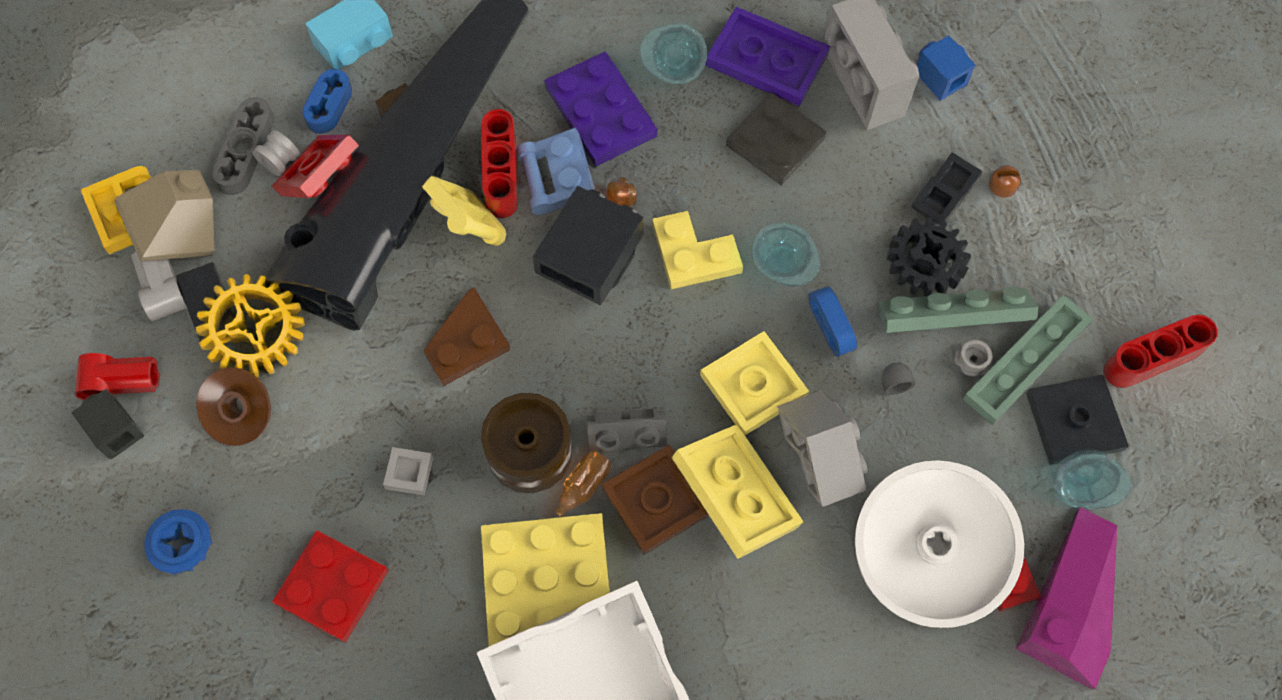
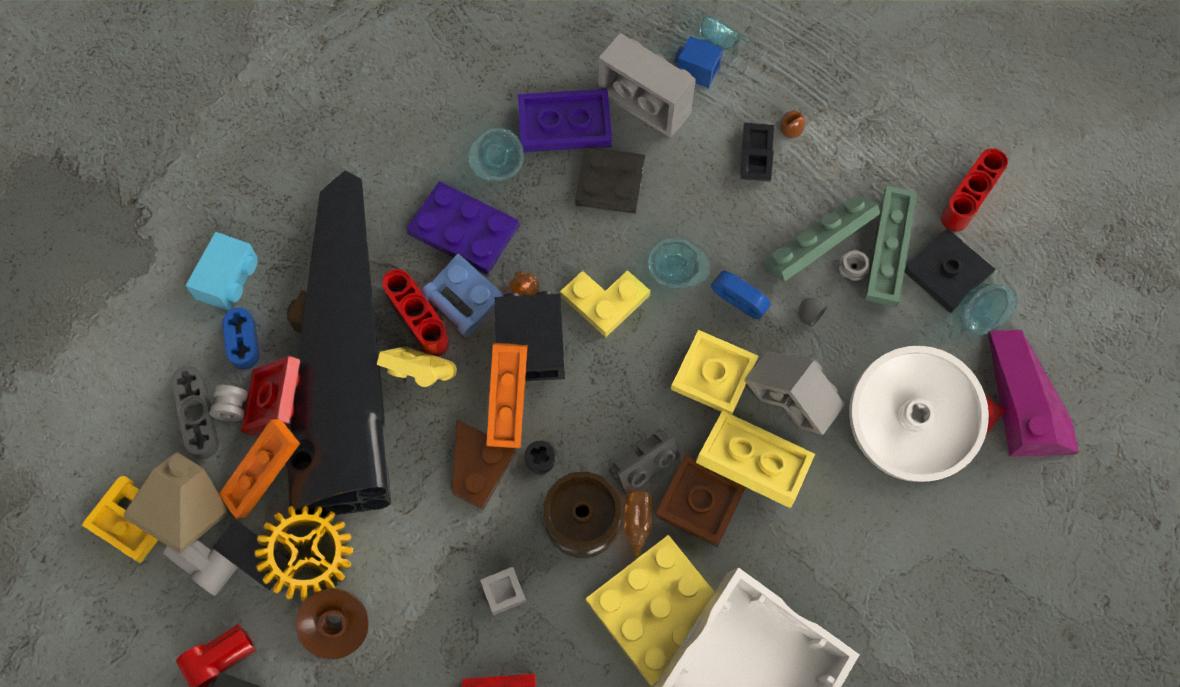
camera: 30 degrees left, 0 degrees up
(259, 225) = (258, 468): none -> orange plate
(526, 285) = (506, 395): none -> orange plate
(533, 356) = (536, 447): none -> black bush
(928, 257) = (777, 207): black gear -> none
(984, 48) = (719, 33): none -> clear light blue piece

